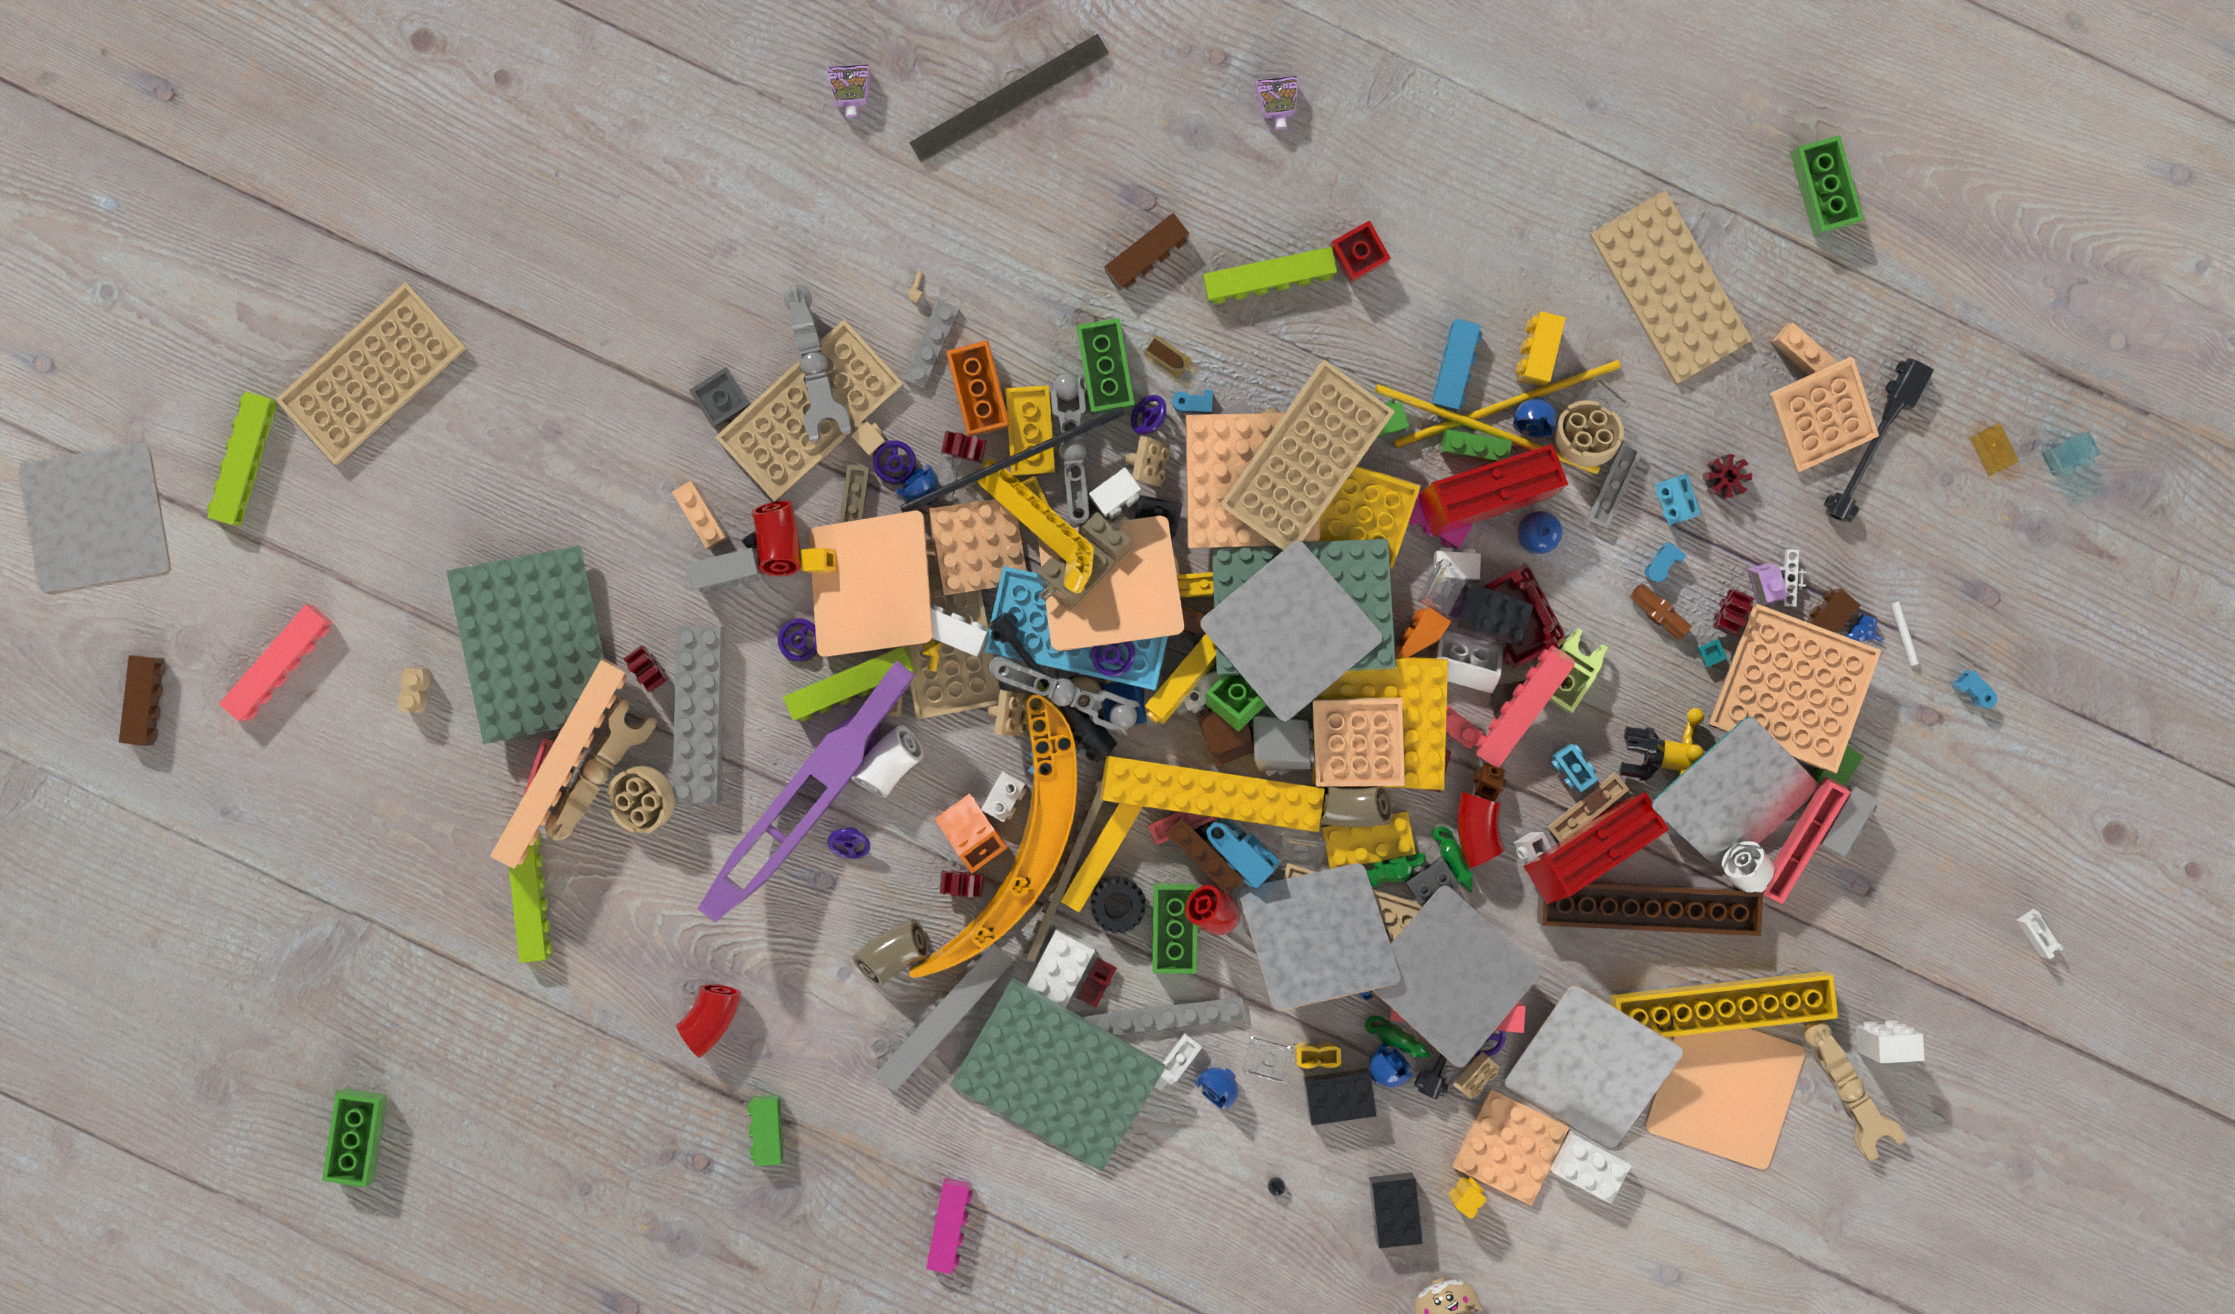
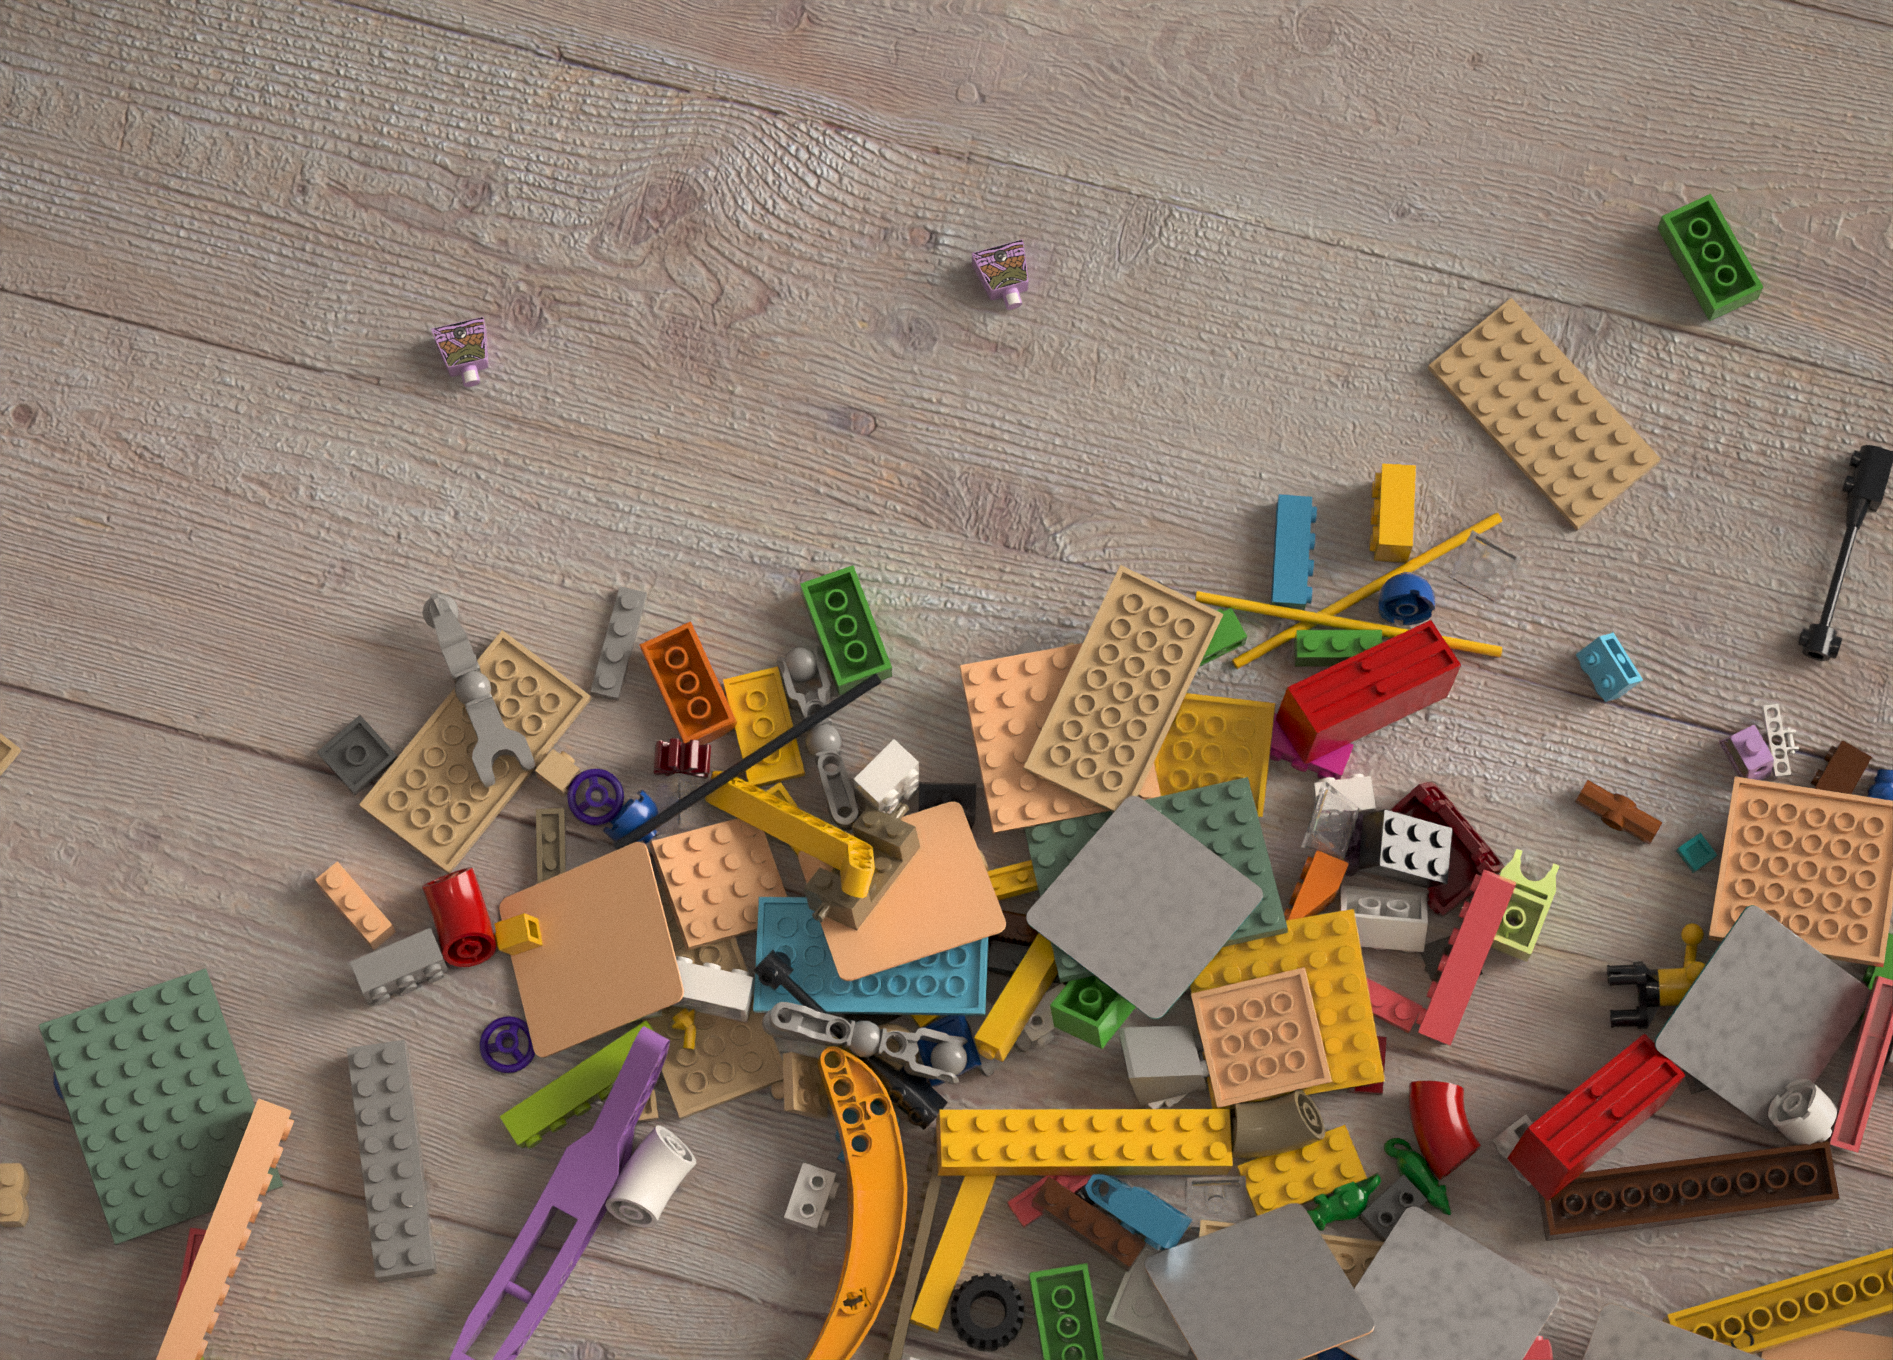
camera: 10 degrees left, 15 degrees down
(598, 770) = (269, 1254): tan piece -> none
(641, 799) = (333, 1280): tan cylinder -> none
(646, 668) = (314, 1111): dark red gear -> none
(750, 541) = (427, 923): black hinge -> none
(848, 839) = (616, 1288): dark purple piece -> none
(914, 294) = (587, 585): tan hand -> none
(961, 883) = (775, 1319): dark red gear -> none
(971, 833) = (777, 1253): orange slope -> none
(1009, 98) = (665, 330): clear smoke plate -> none
(1096, 660) = (939, 989): dark purple piece -> none
(1147, 251) = (873, 482): reddish brown brick -> none
(1149, 461) = (925, 736): tan plate -> none
(1152, 418) = (917, 683): dark purple piece -> none
(1167, 356) = (923, 606): tile -> none
(1187, 403) = (953, 656): dark azure leg -> none
(1212, 910) = (1114, 1289): red brick -> none
(1224, 740) = (1087, 1070): reddish brown brick -> none
(1269, 275) = (1033, 484): lime brick -> none
(1359, 252) = (1142, 436): red brick -> none
(1489, 782) = (1443, 1063): reddish brown brick -> none
(1539, 532) = (1443, 741): blue cylinder -> none
(1573, 766) = (1549, 1027): medium azure brick -> none
(1588, 433) = (1476, 604): tan cylinder -> none
(1588, 807) = (1598, 1054): tan plate -> none
(1614, 485) = (1525, 665): light grey plate -> none
(1658, 567) = (1604, 758): dark azure leg -> none
(1727, 468) = (1655, 624): dark red gear -> none
(1733, 612) = (1710, 794): dark red gear -> none
(1802, 349) = (1731, 462): light nougat brick -> none
(1824, 414) = (1770, 530): light nougat plate -> none

